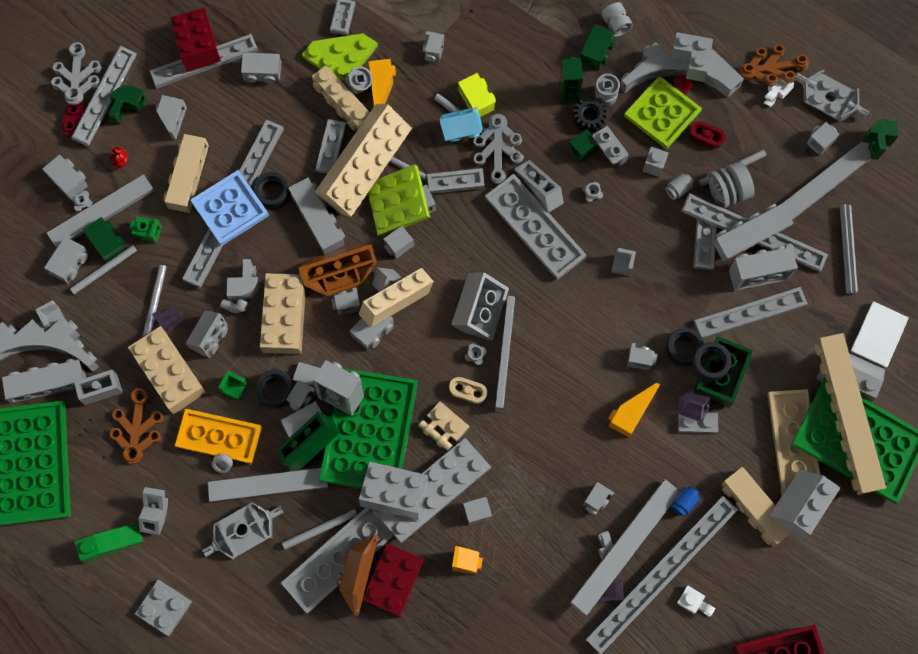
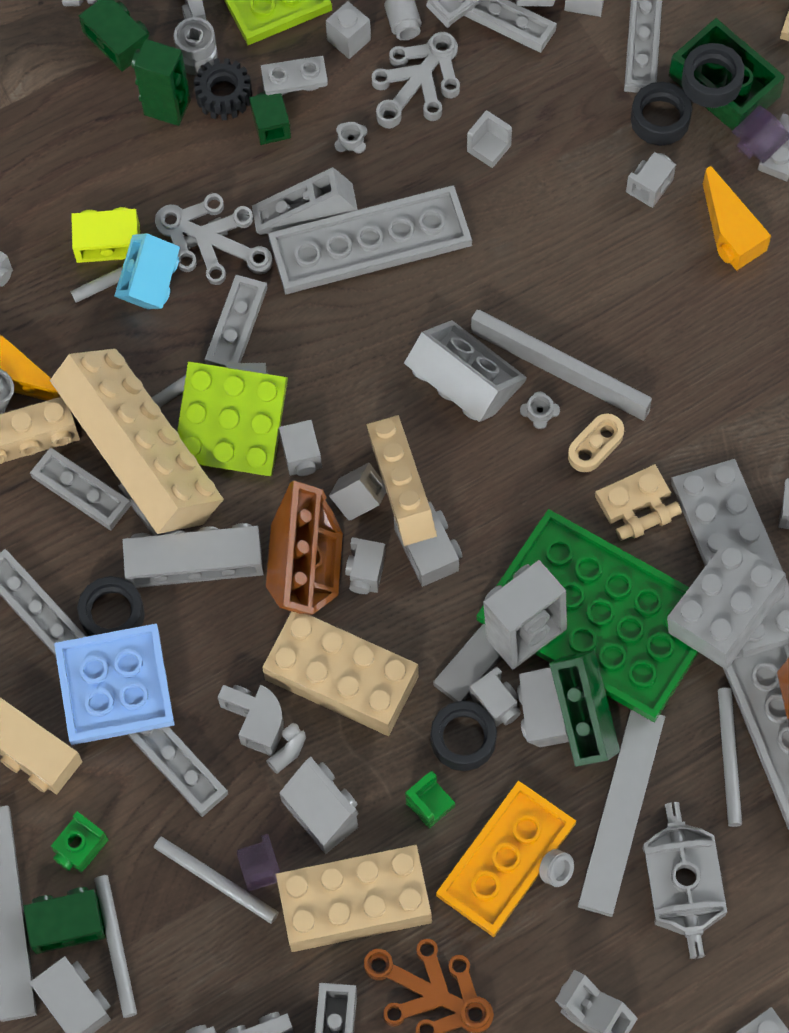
camera: 65 degrees left, 5 degrees down
(646, 210) = (417, 76): none -> light grey plant

